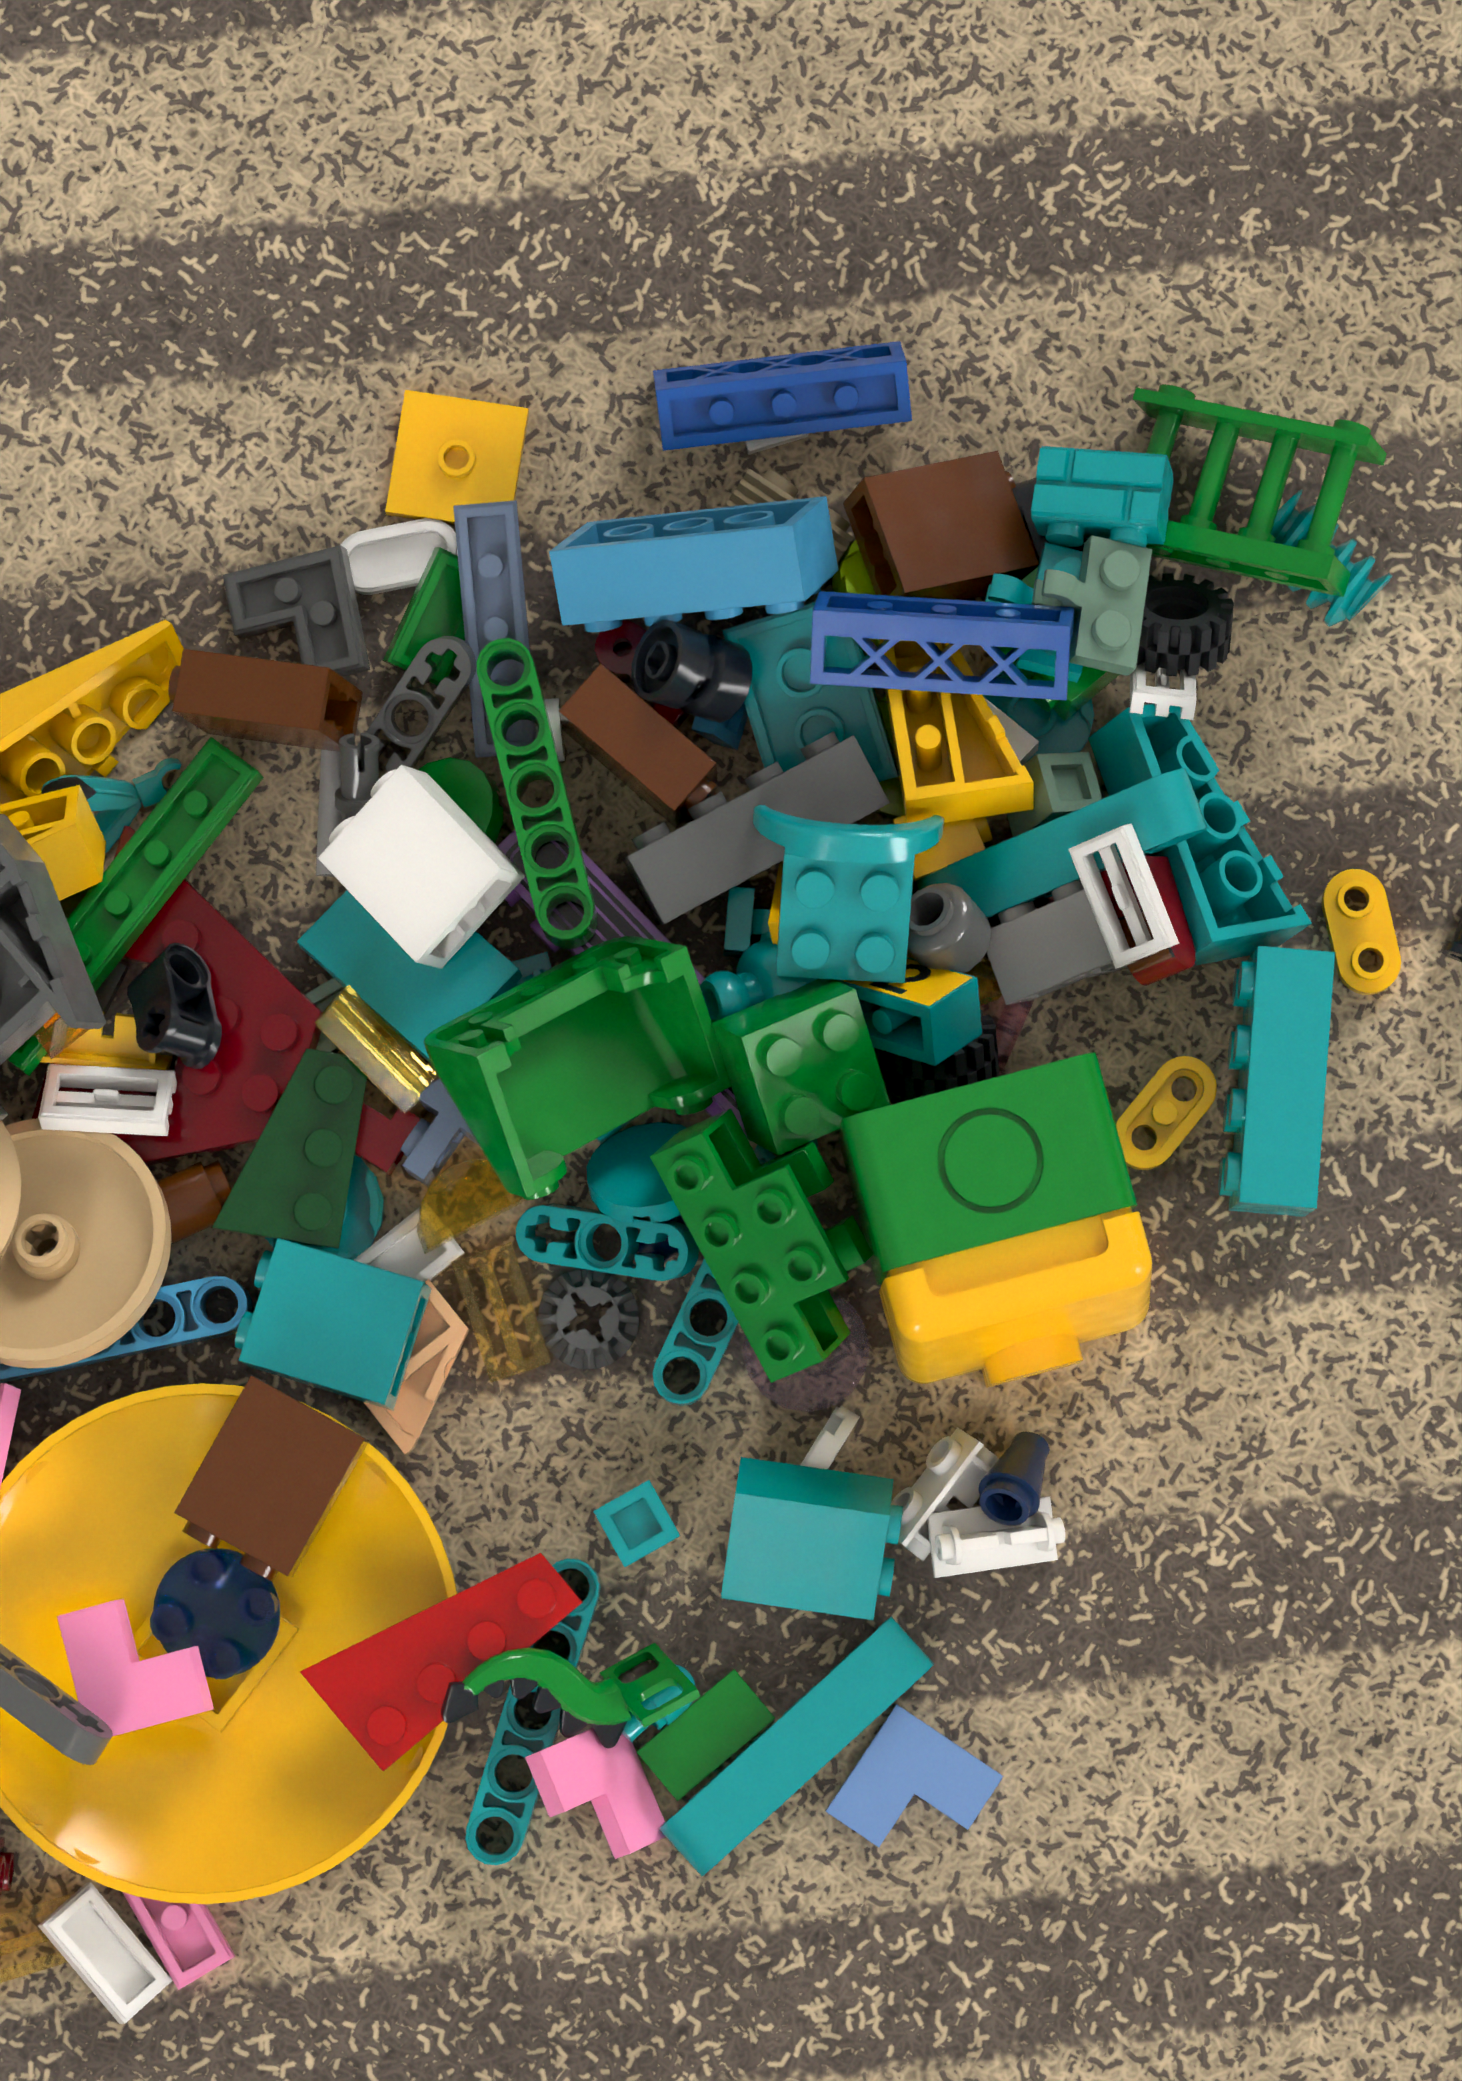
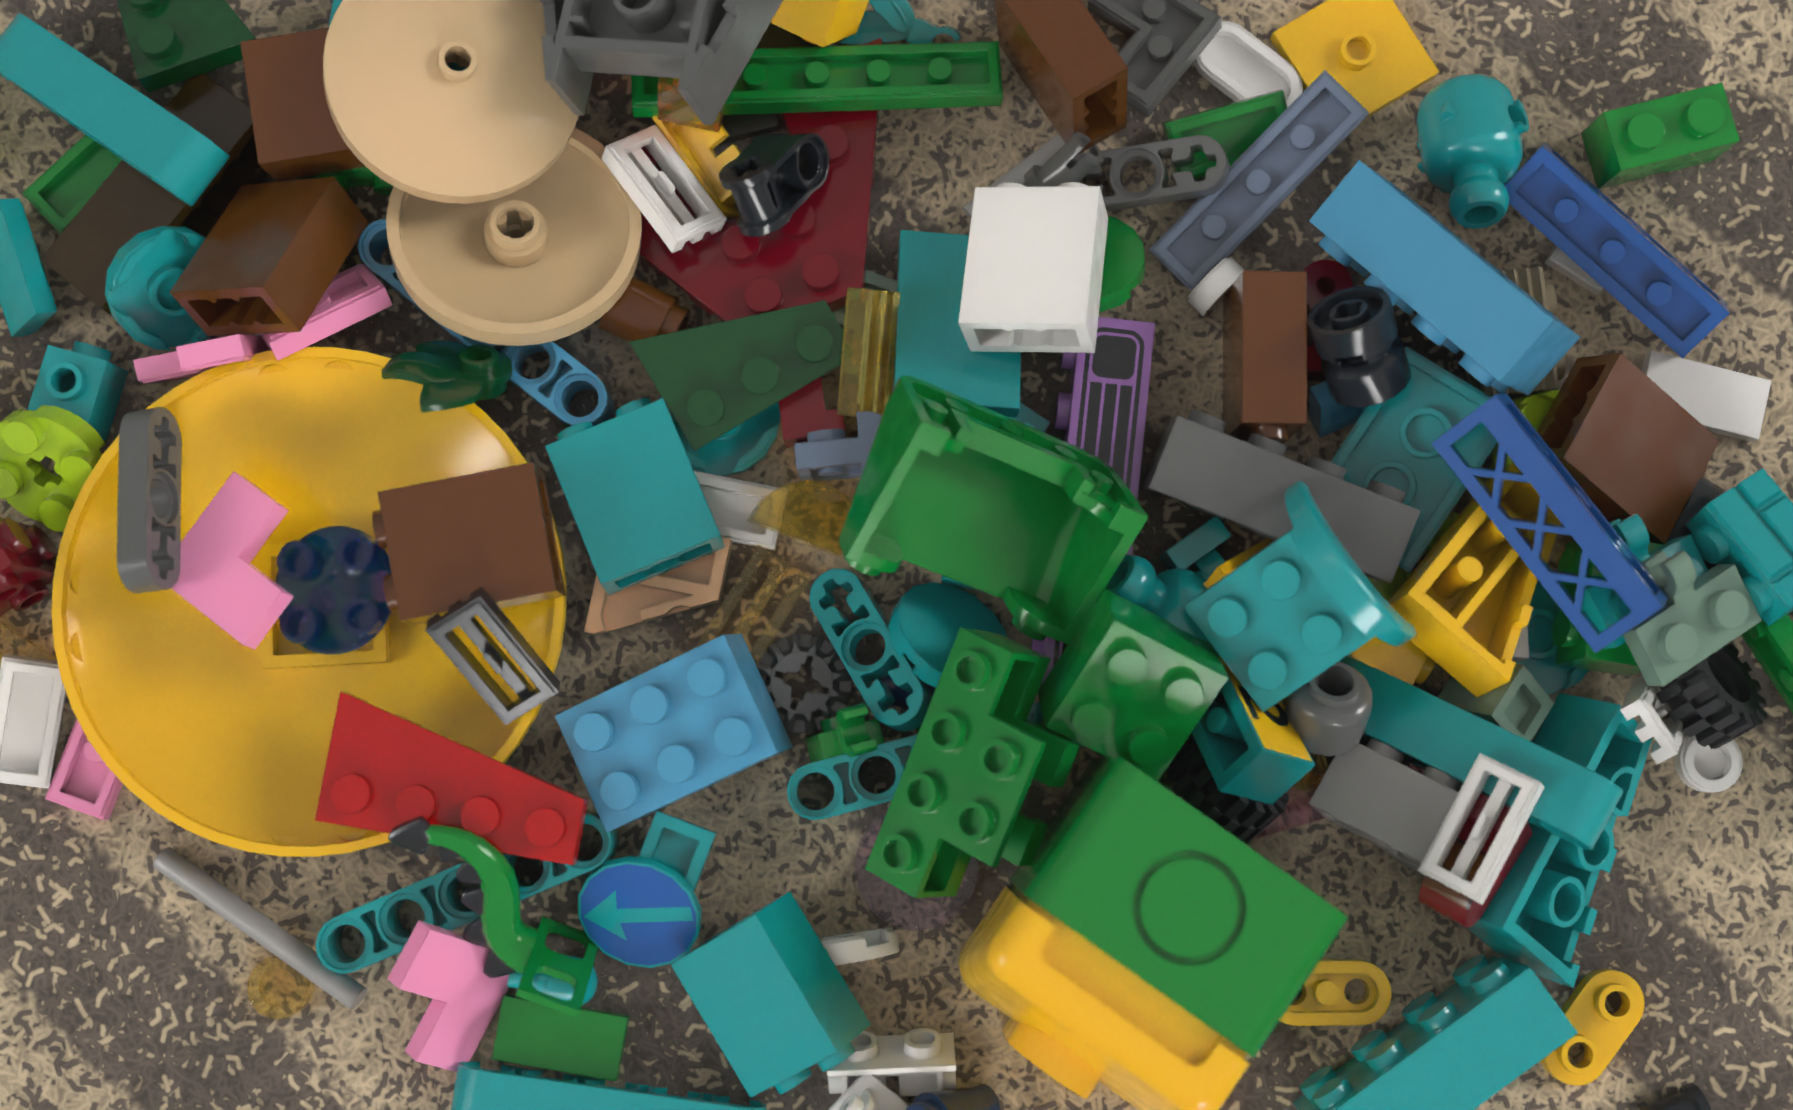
camera: 45 degrees right, 0 degrees up
(119, 1384) = (452, 373): none -> dark green plate
(325, 1524) = (462, 614): none -> tile
(423, 1900) = (258, 927): none -> light grey bar
(482, 1922) = (278, 989): none -> clear yellow tile
(524, 765) = (1177, 283): green beam -> none
(543, 1446) = (673, 731): none -> dark azure brick
(609, 439) = (1471, 145): none -> teal piece
(656, 1316) = (845, 734): none -> green plate
(660, 1590) = (639, 912): none -> blue piece
(725, 285) = (1660, 135): none -> green brick
(958, 421) = (1715, 396): none -> white tile
(1243, 671) = (1708, 768): none -> white tile

